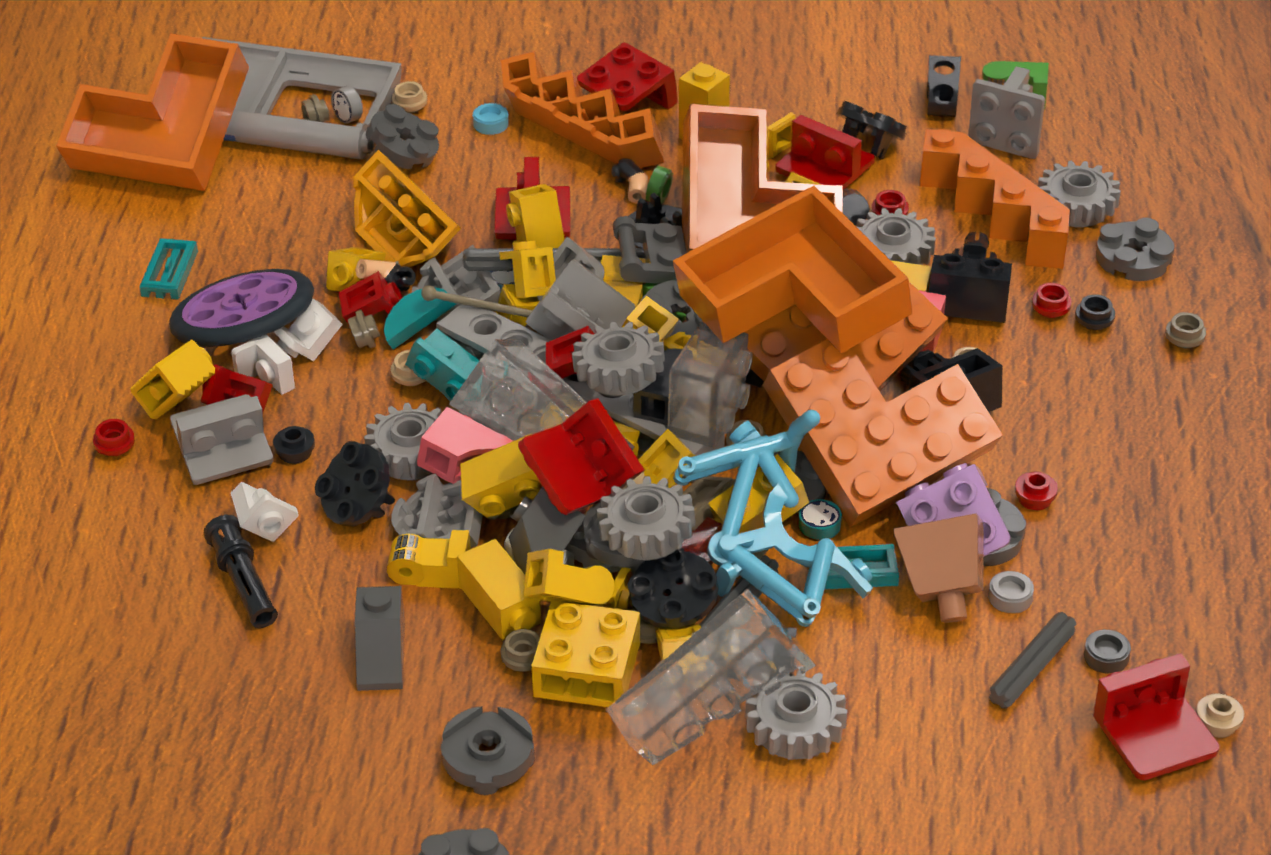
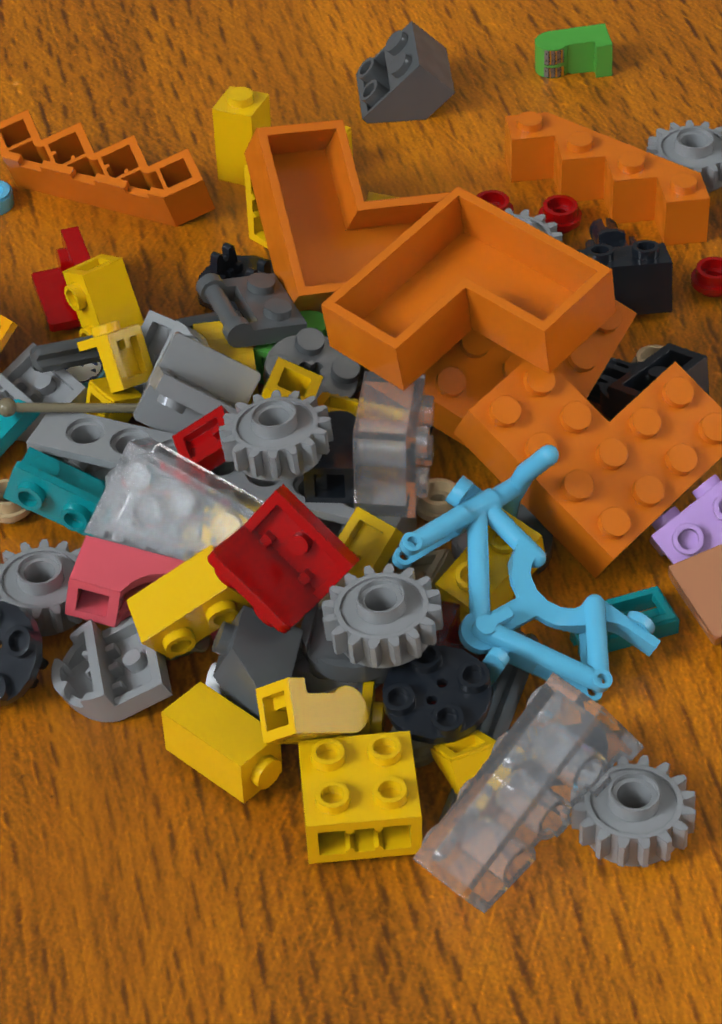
camera: 15 degrees left, 0 degrees up
(379, 638) = (96, 835): dark grey slope -> none
(427, 560) = (118, 726): yellow leg -> none
(489, 769) = (279, 969): dark grey plate -> none
(520, 649) = (275, 810): dark tan plate -> none
(631, 78) = (148, 116): red bracket -> none
(637, 179) = (193, 234): arm -> none
(660, 183) = (222, 231): bright green tile -> none
(820, 519) = (561, 576): tile -> none
(824, 154) = (399, 163): red bracket -> none
(864, 77) = (405, 78): none -> dark grey slope
(883, 126) = (452, 123): black plate -> none
(943, 88) = (497, 73): black leg -> none
(946, 221) = (563, 211): none -> red plate
(1007, 115) = (587, 84): light grey bracket -> none

